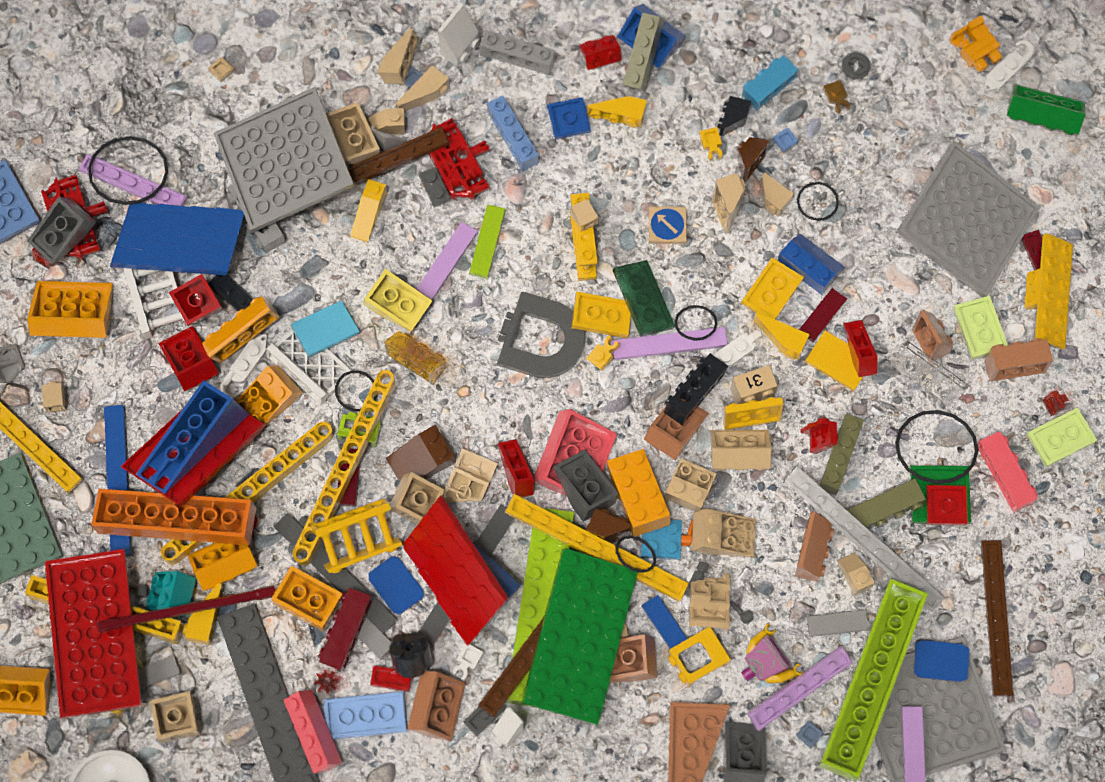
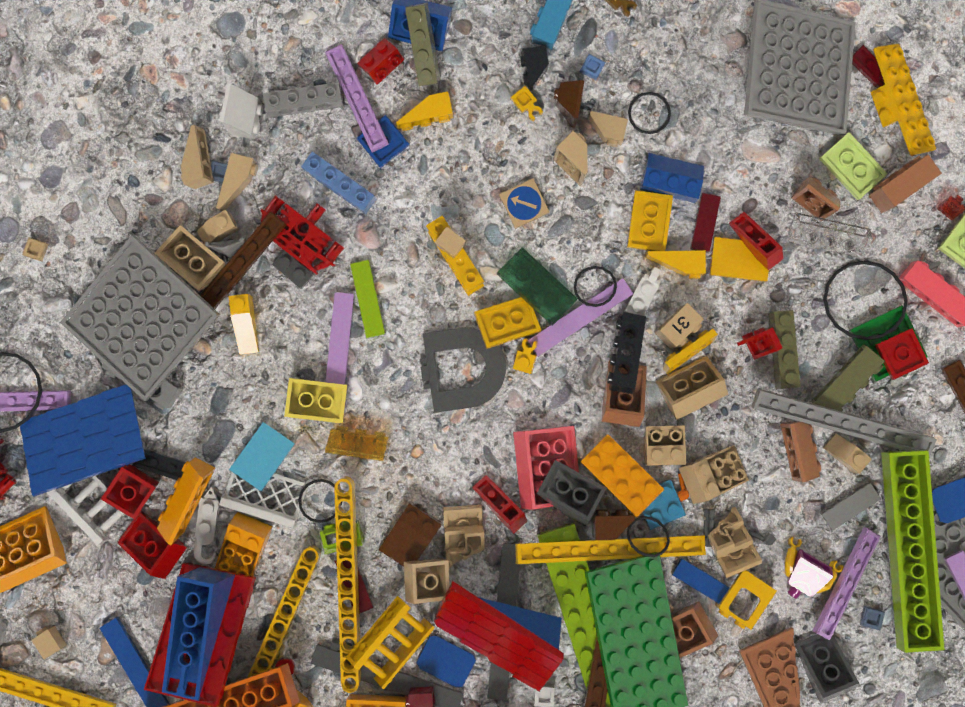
camera: 20 degrees left, 15 degrees up
(564, 72) = (356, 98): none -> lavender tile

